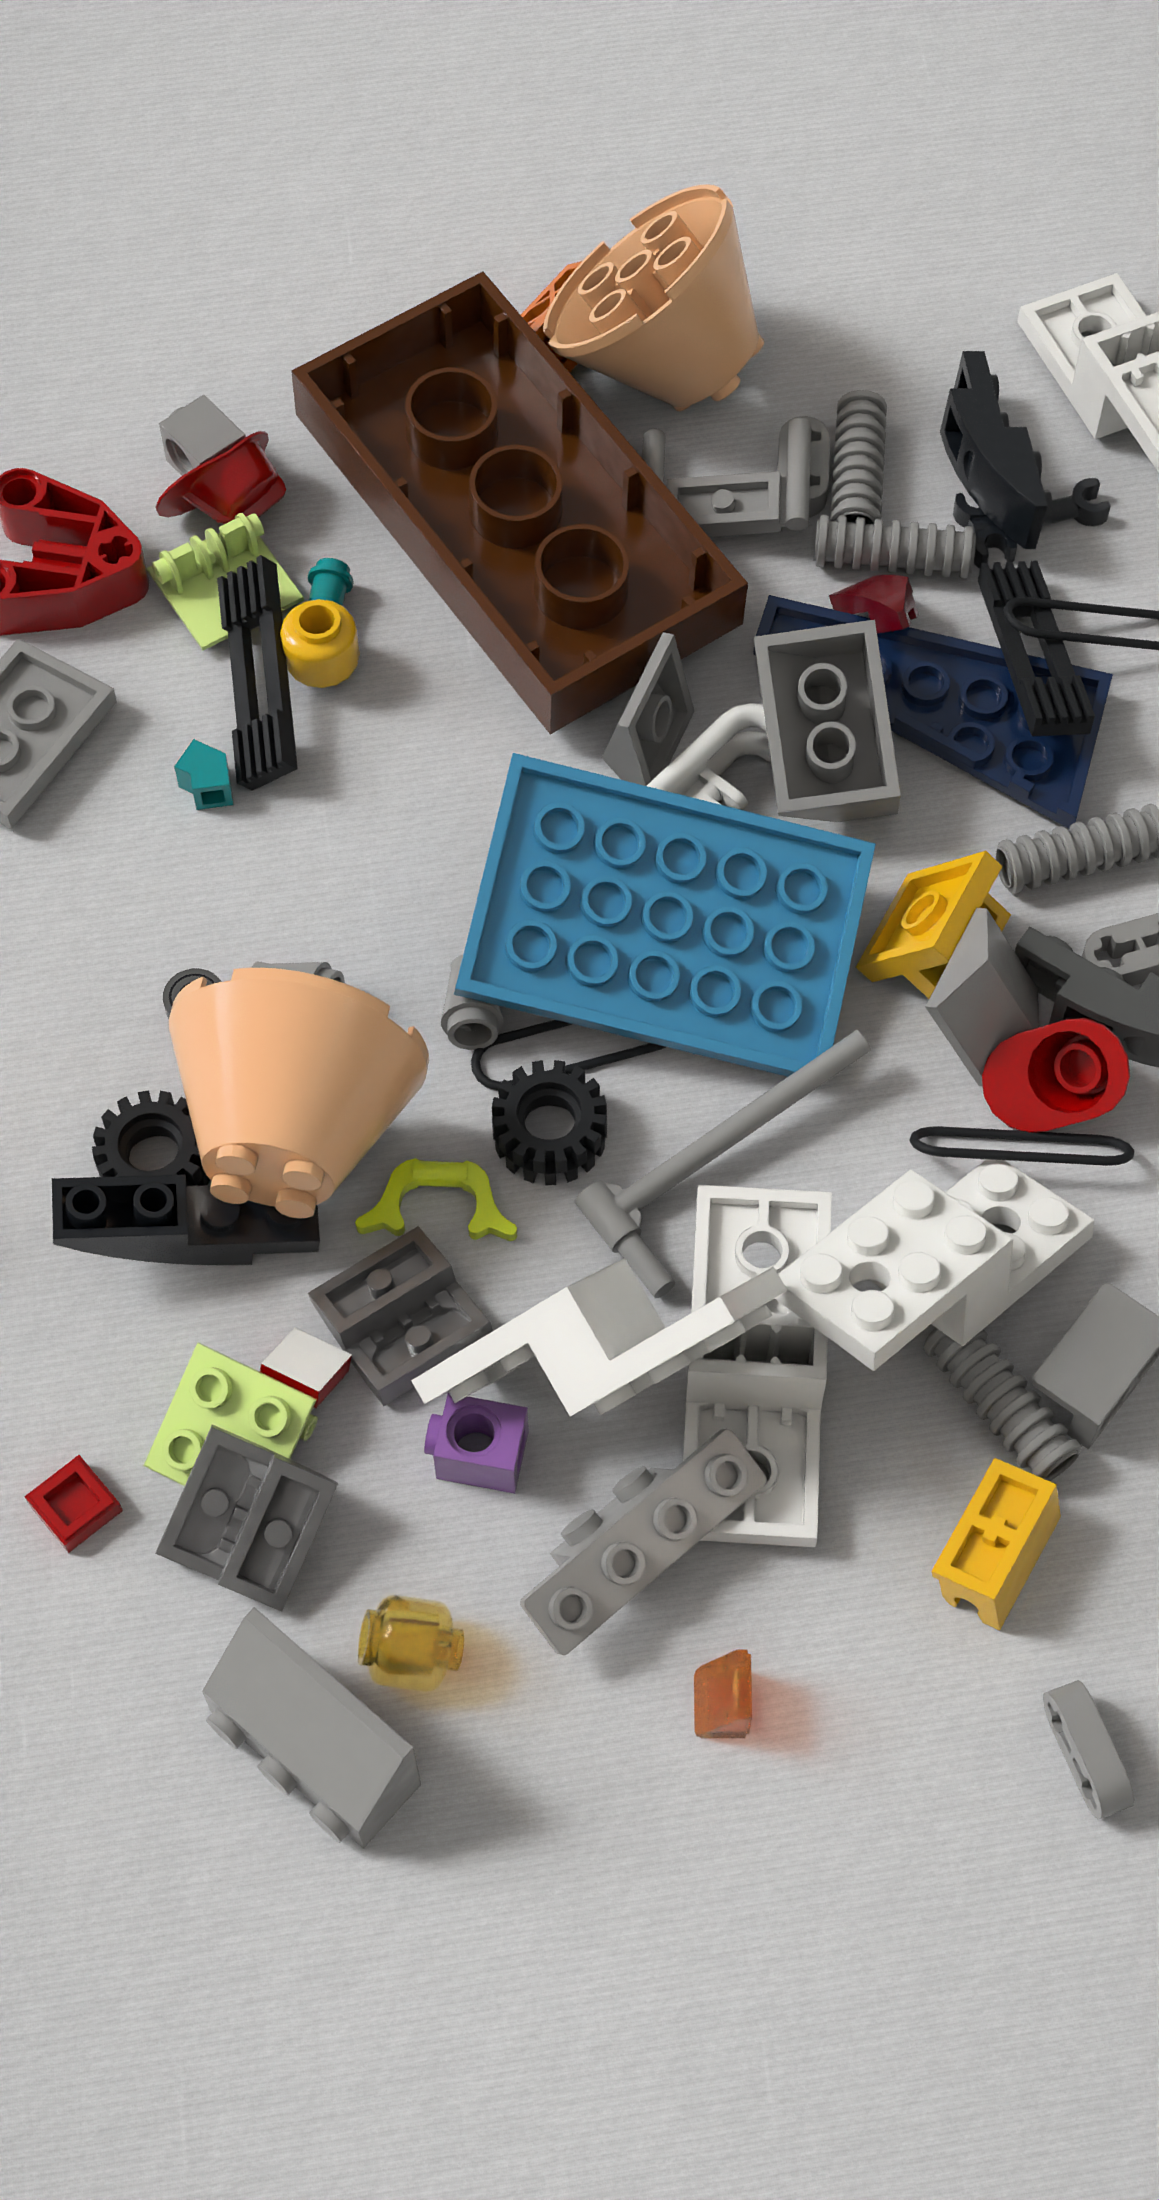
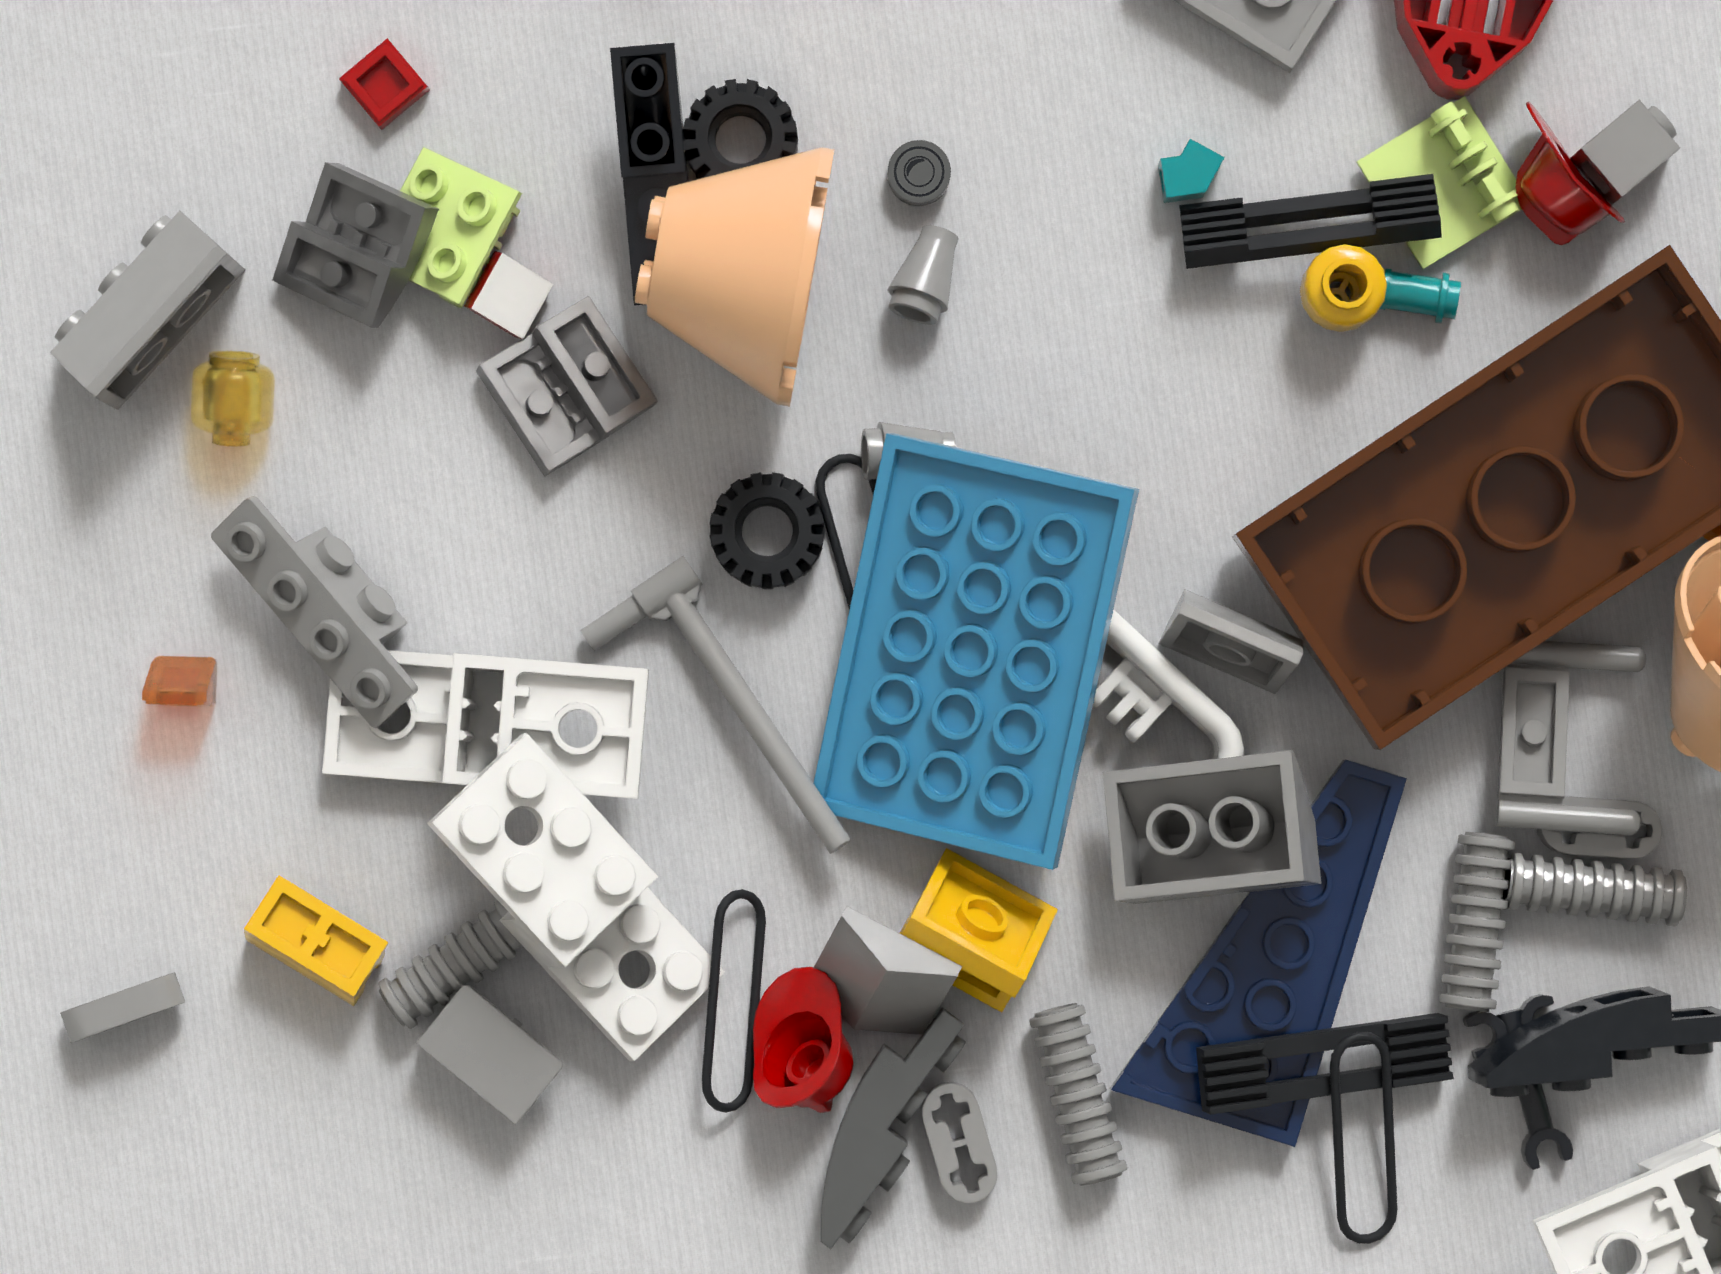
camera: 90 degrees right, 25 degrees up
(438, 1174) = (717, 425): neon yellow helmet -> none
(491, 1468) = (431, 488): medium lavender brick -> none
(601, 1340) = (476, 570): white bracket -> none
(885, 599) = (1393, 901): dark red slope -> none

